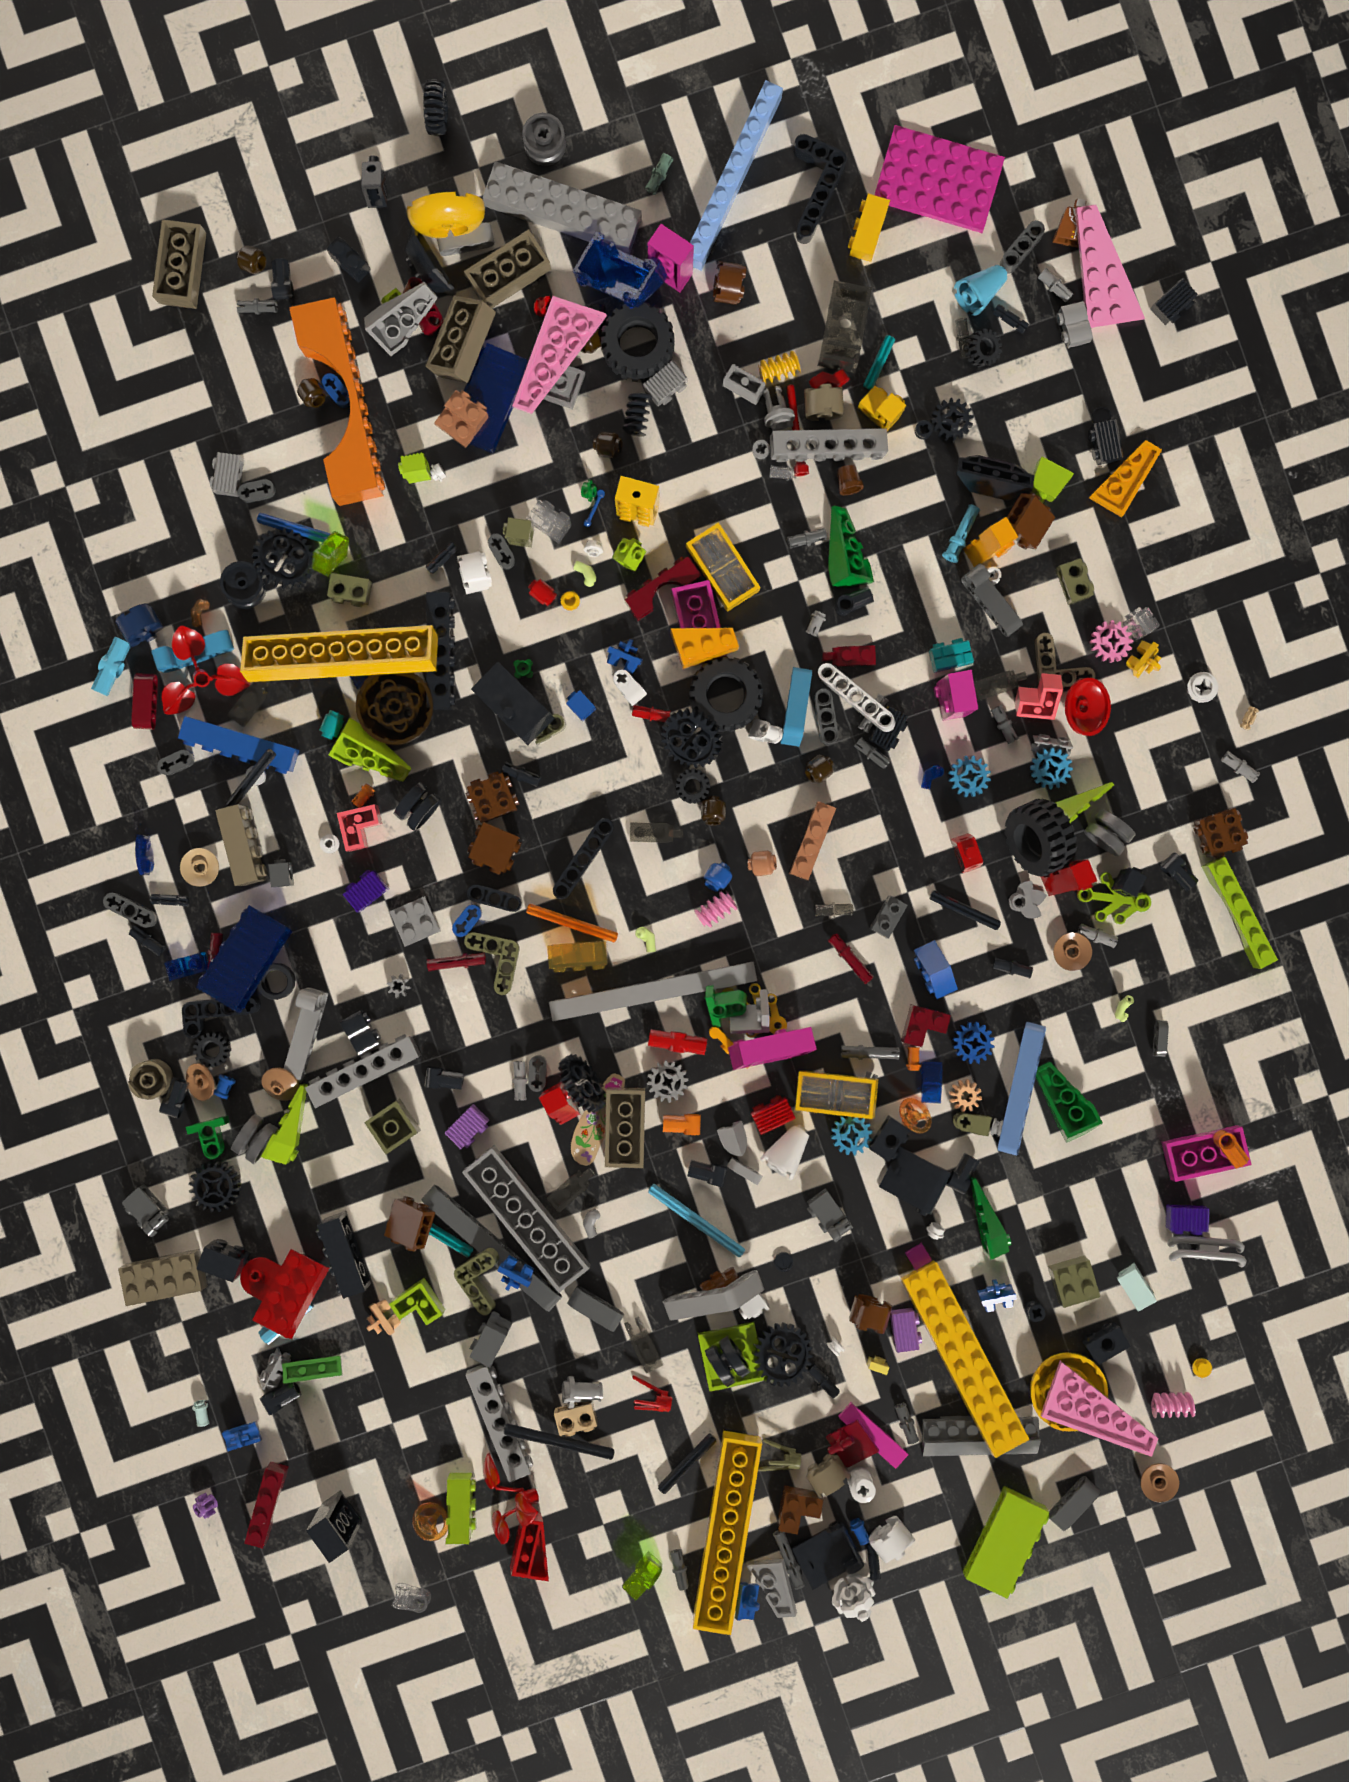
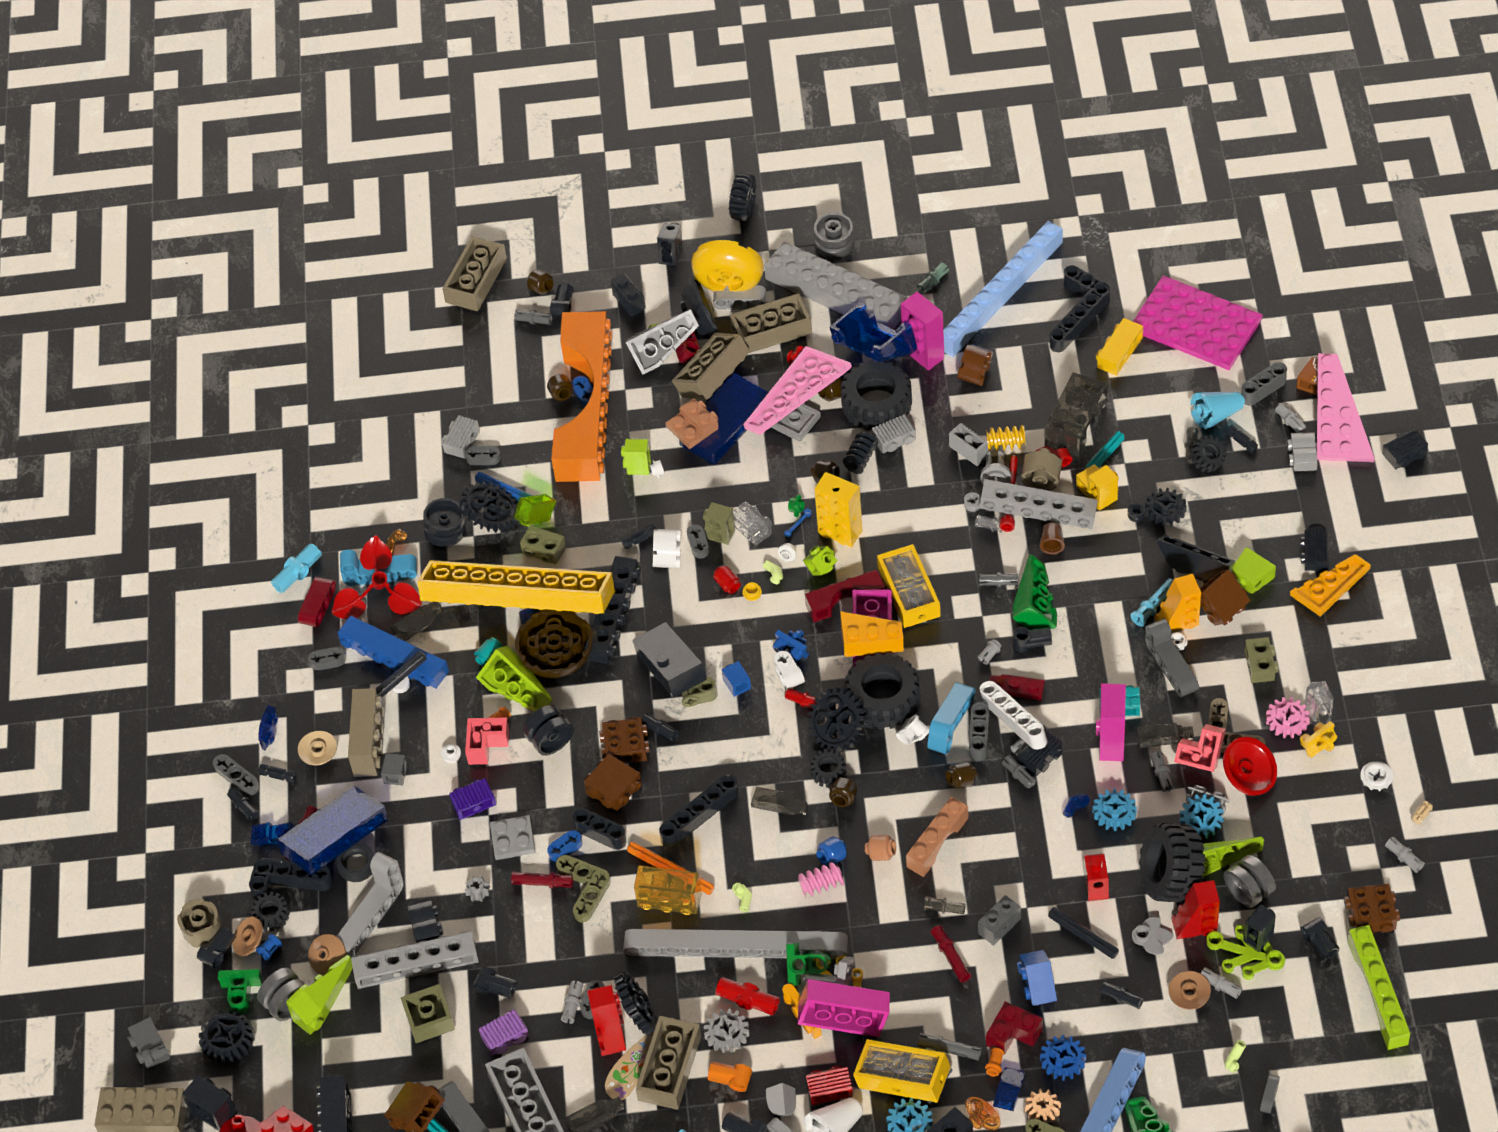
camera: 15 degrees right, 35 degrees down
(139, 624) = (335, 534): dark blue brick -> none
(518, 667) = (690, 635): green plate -> none

